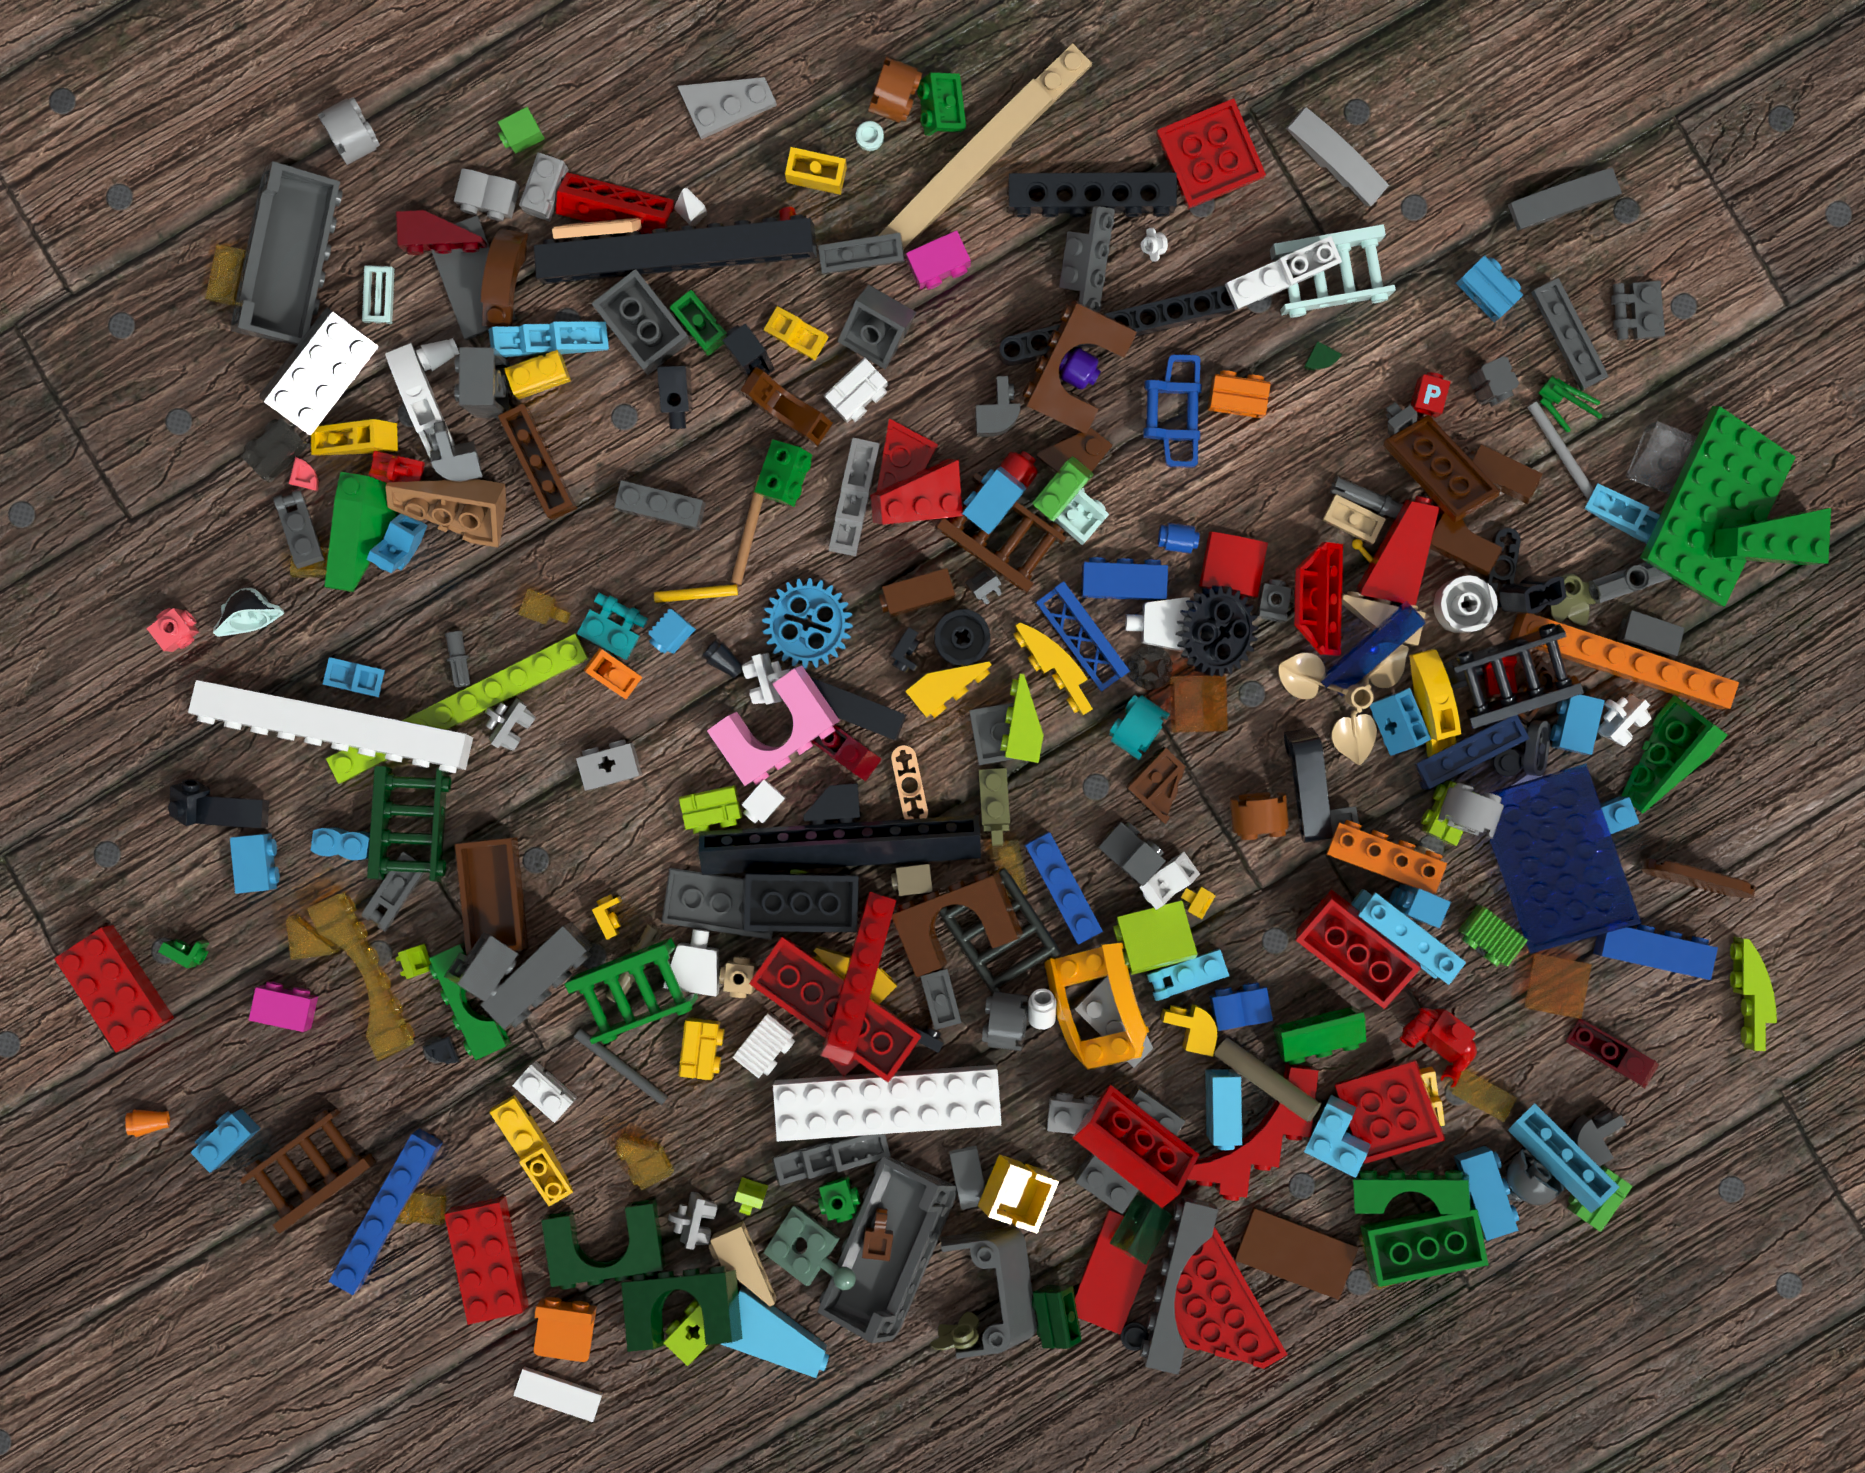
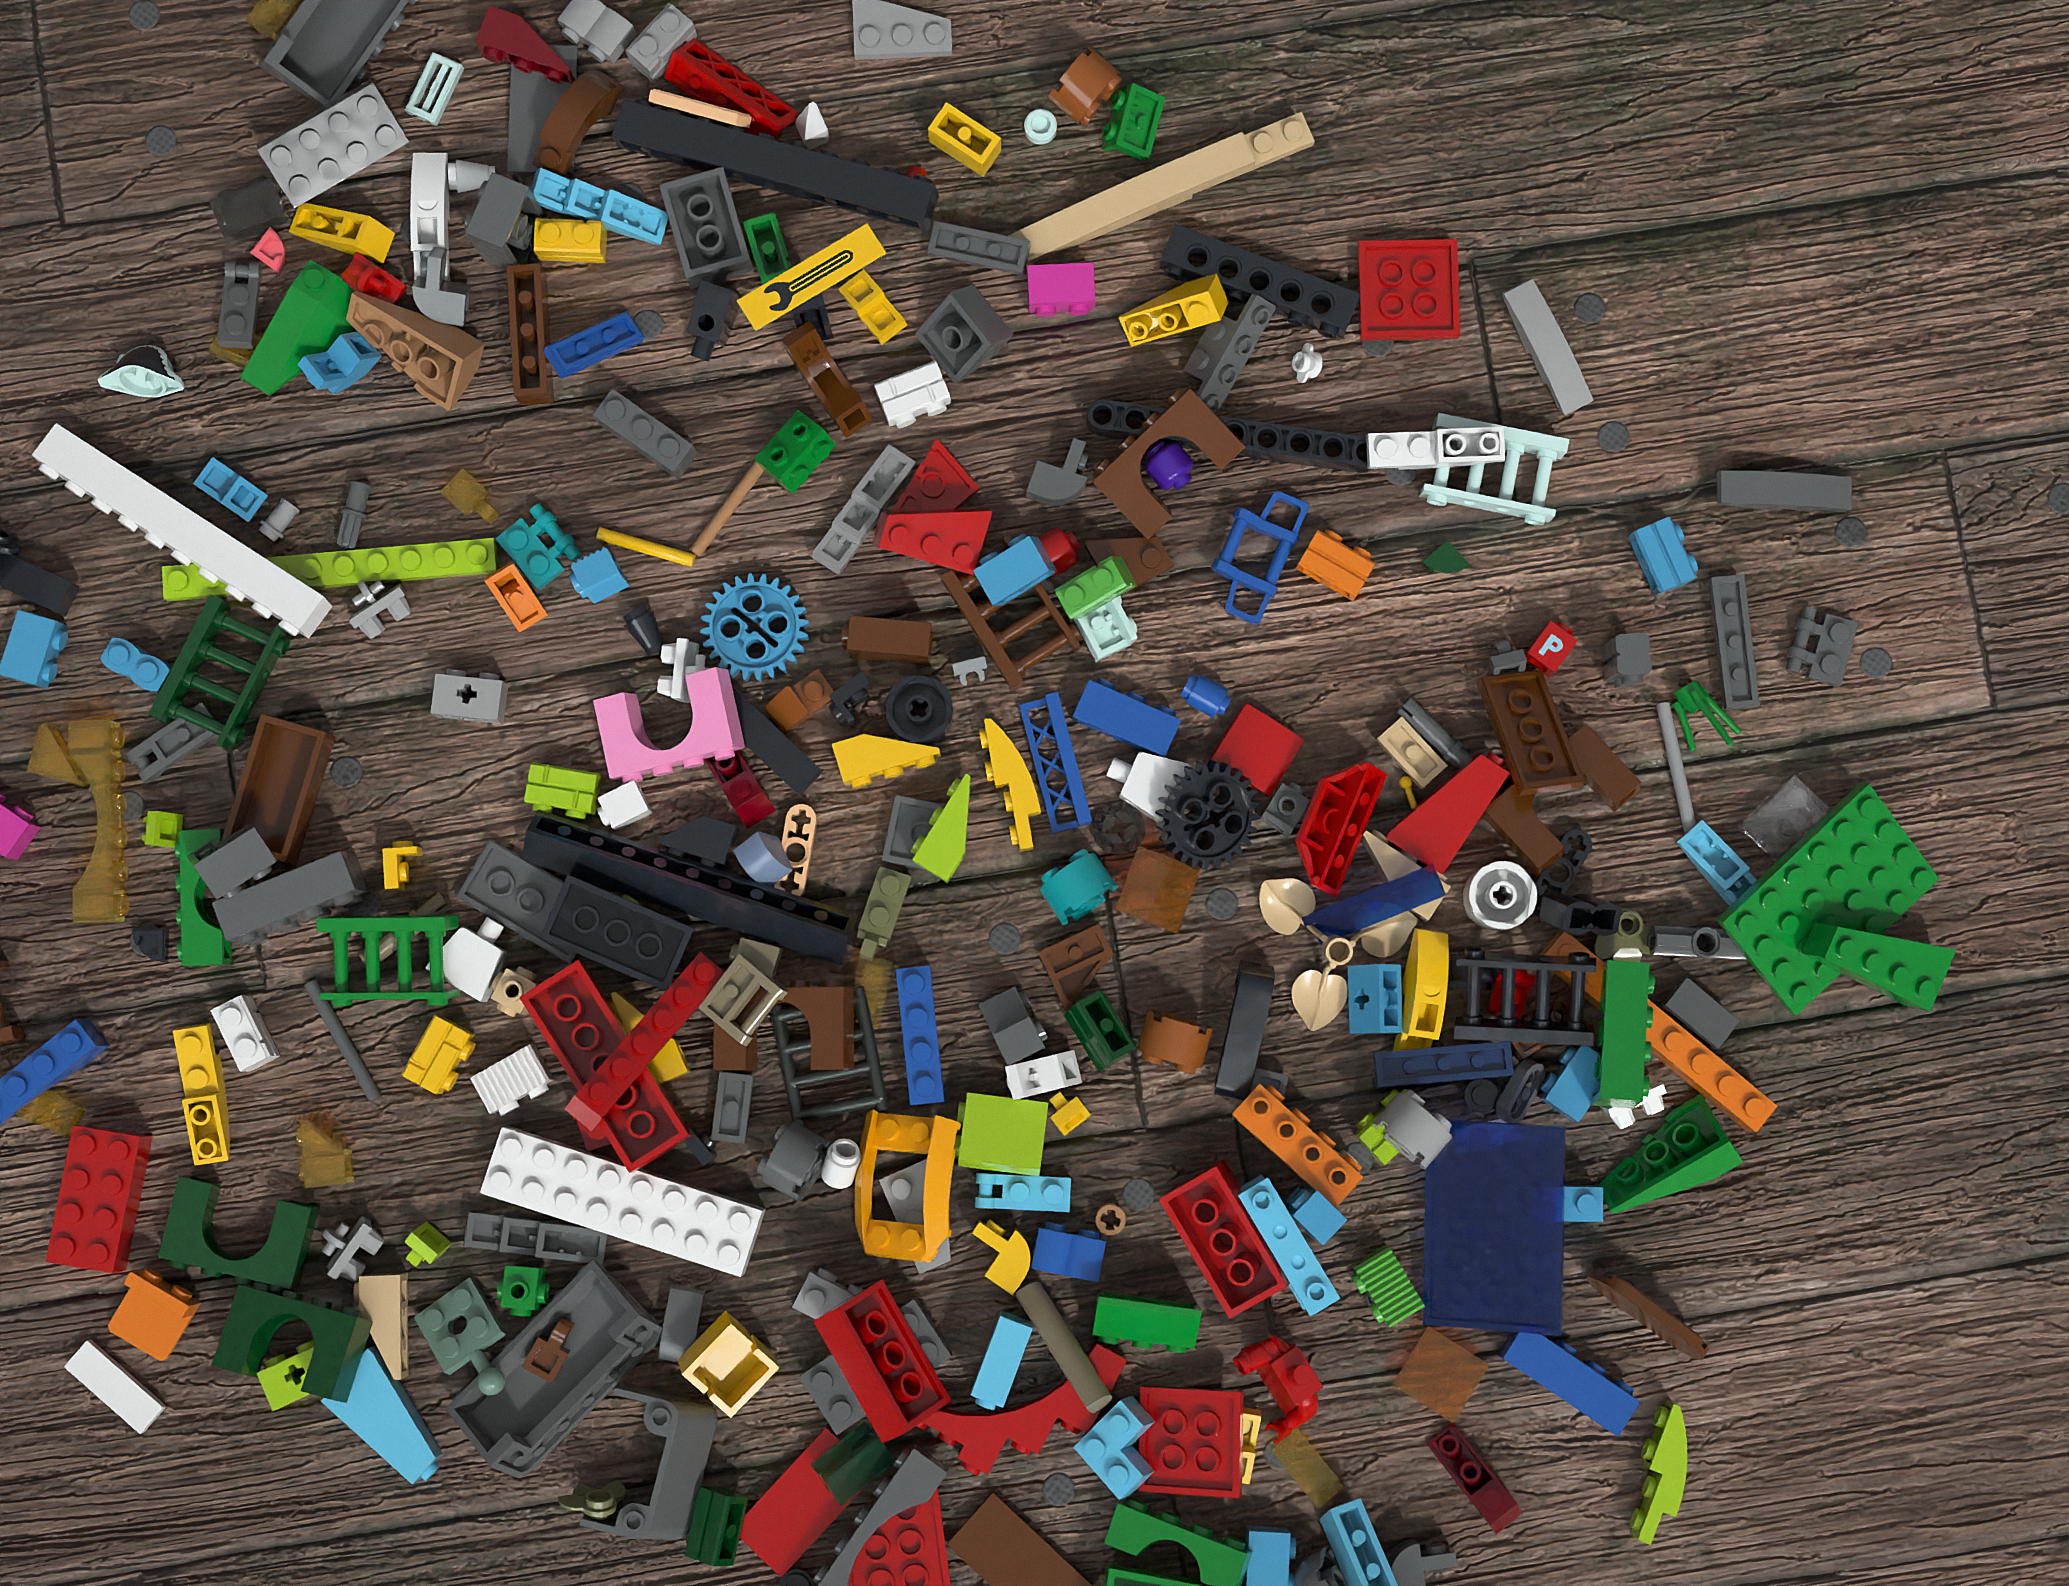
camera: 20 degrees right, 5 degrees down
(173, 629) = (56, 359): coral brick -> none
(401, 686) = (278, 520): none -> light grey pin
(591, 450) = (593, 344): none -> blue tile
(746, 332) = (811, 277): none -> yellow sticker
(865, 666) = (799, 702): none -> dark orange slope
(888, 800) = (763, 858): none -> sand blue brick
(910, 911) = (733, 994): none -> dark tan plate
(1037, 242) = (1176, 311): none -> yellow slope
(1199, 829) = (1100, 1030): none -> dark green brick
(1266, 960) = (1101, 1224): none -> medium nougat bush
(1604, 675) = (1623, 1034): none -> green wedge

